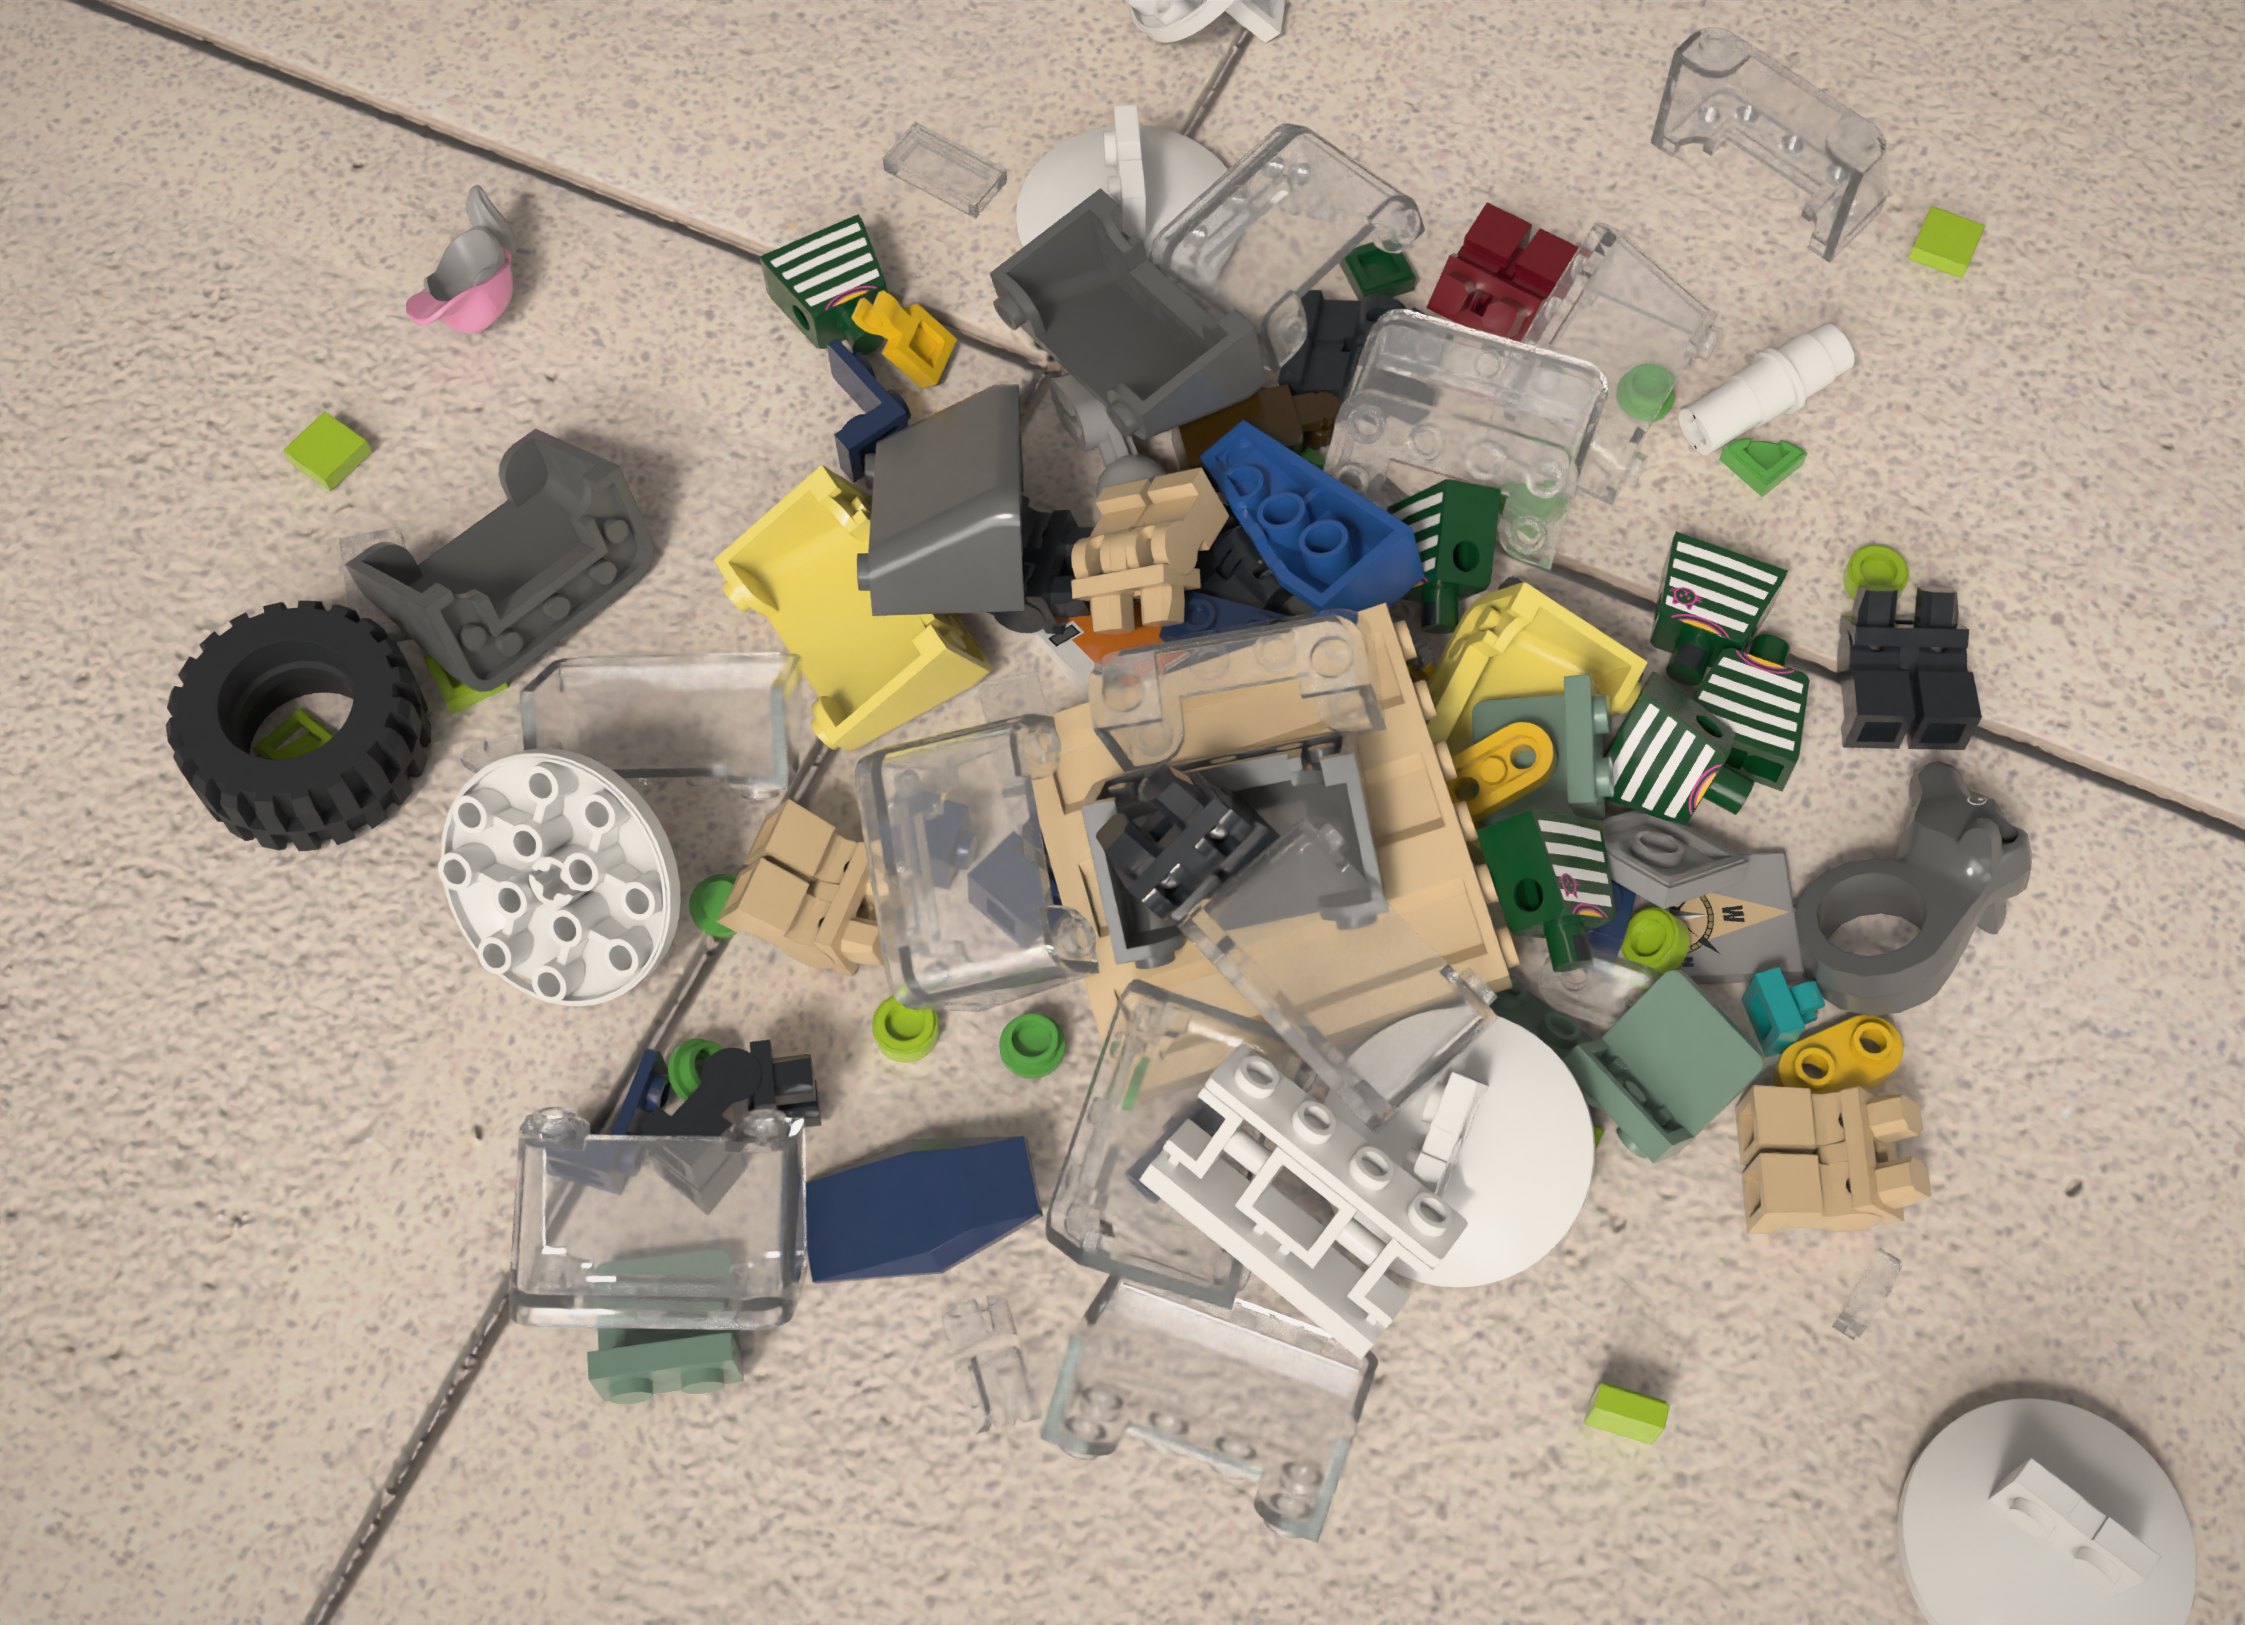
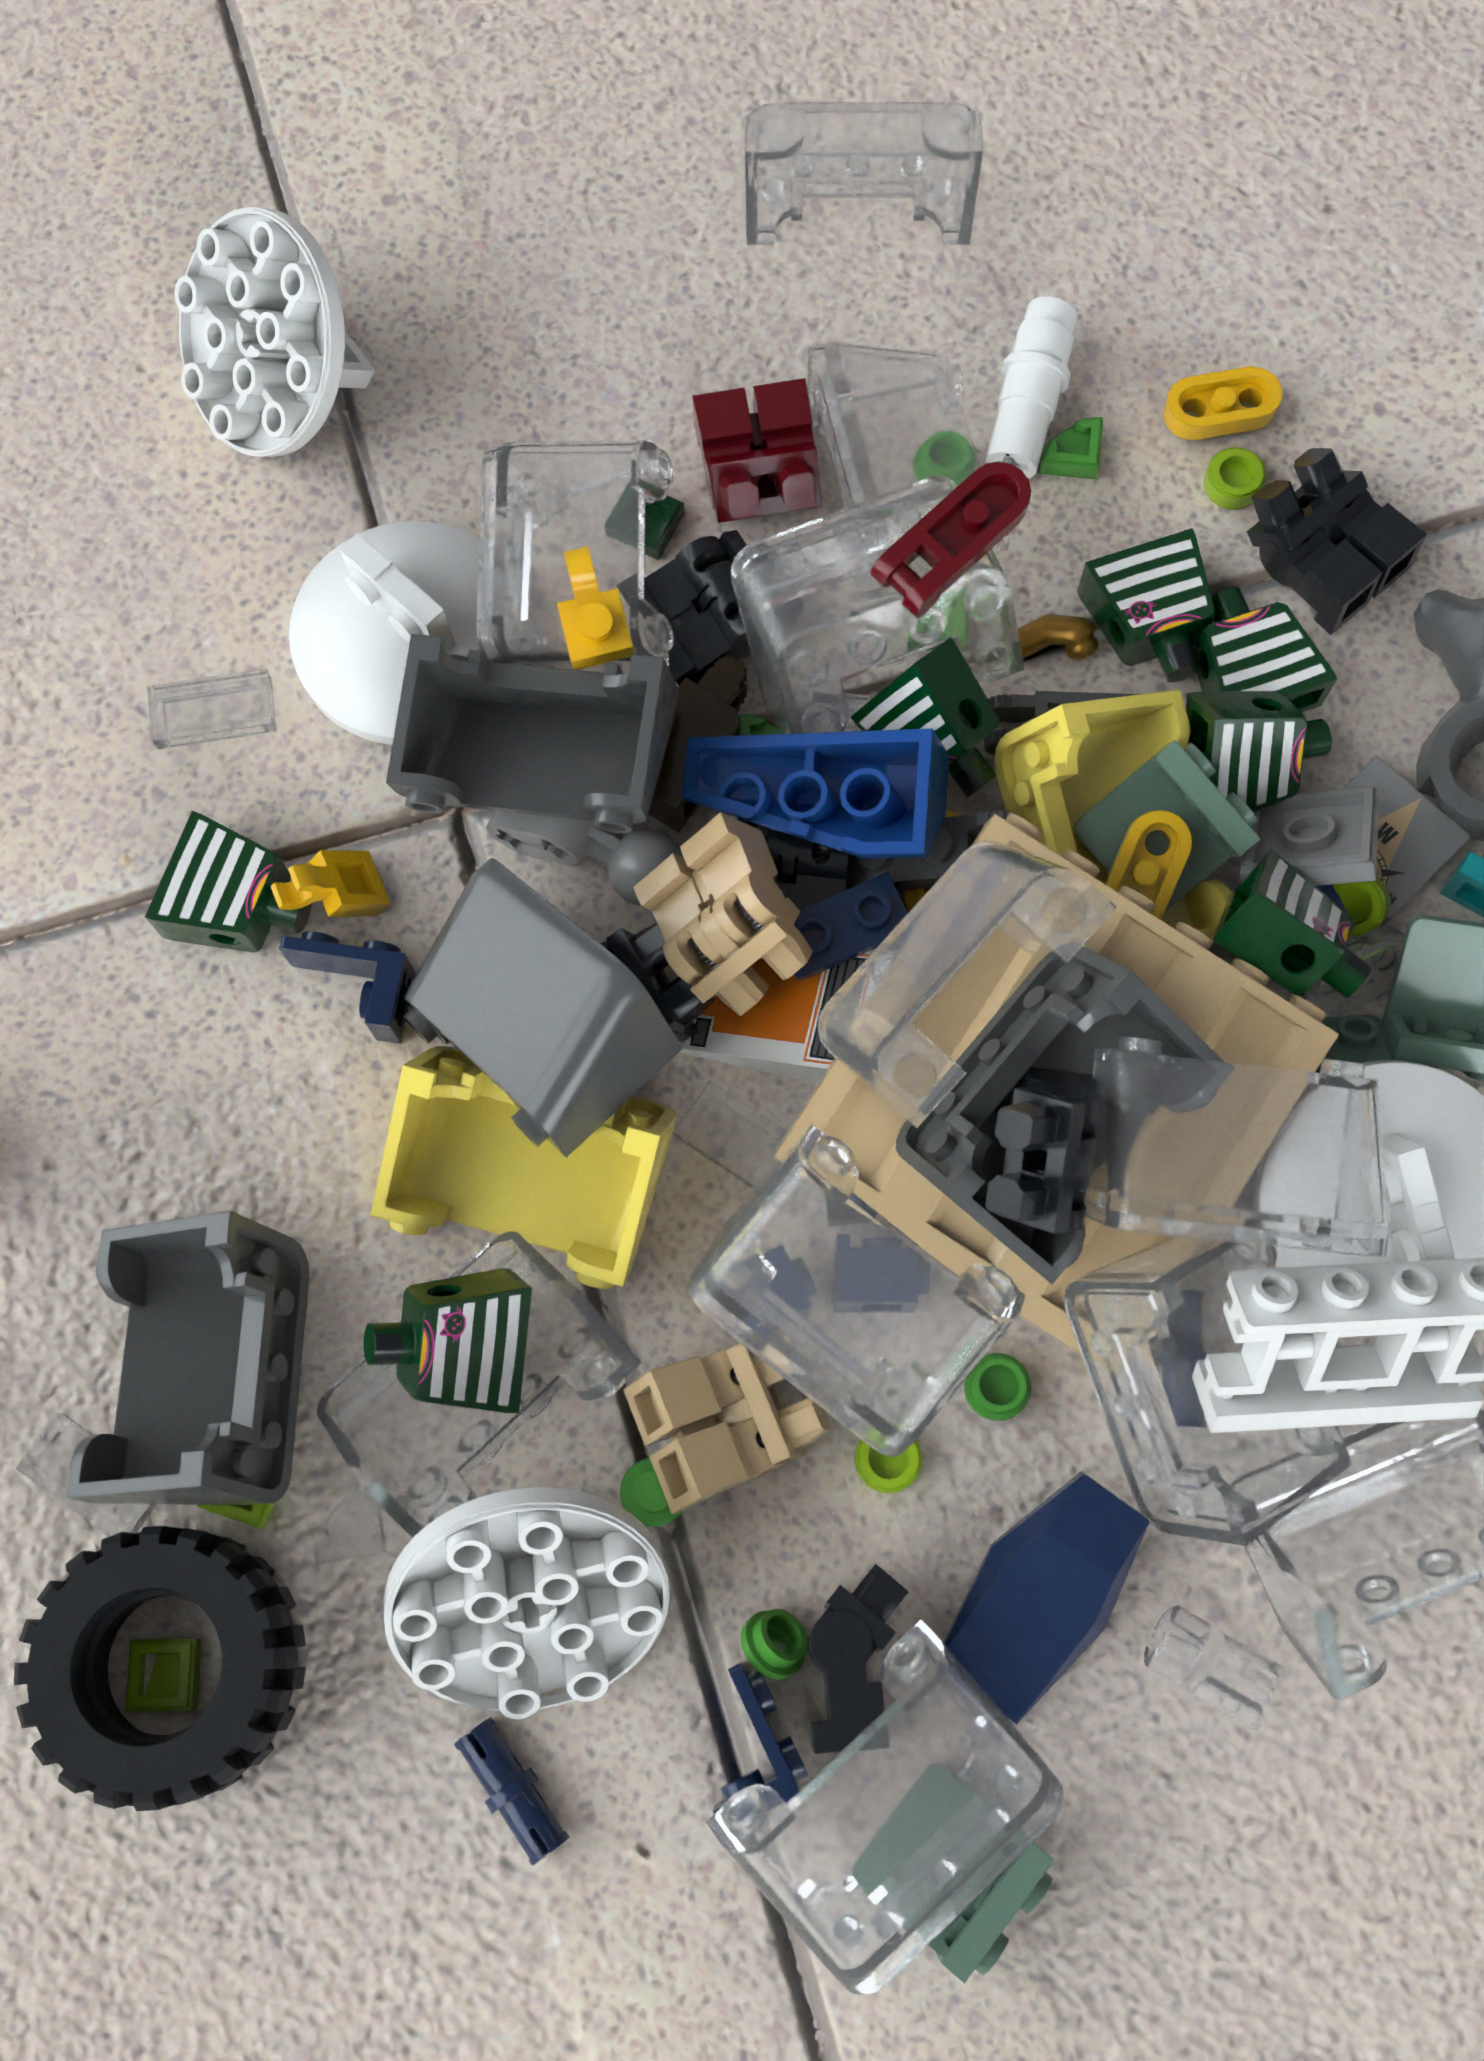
camera: 40 degrees left, 10 degrees up
(434, 1010) = (511, 1791): none -> dark blue pin
(682, 676) = (459, 1340): none -> dark green torso
(1246, 278) = (594, 620): none -> yellow plate
(1556, 404) = (955, 535): none -> dark red plate
(1611, 570) = (1058, 630): none -> pearl gold arm
(1917, 512) = (1217, 403): none -> yellow plate
(1946, 242) = (1041, 161): lime tile -> none

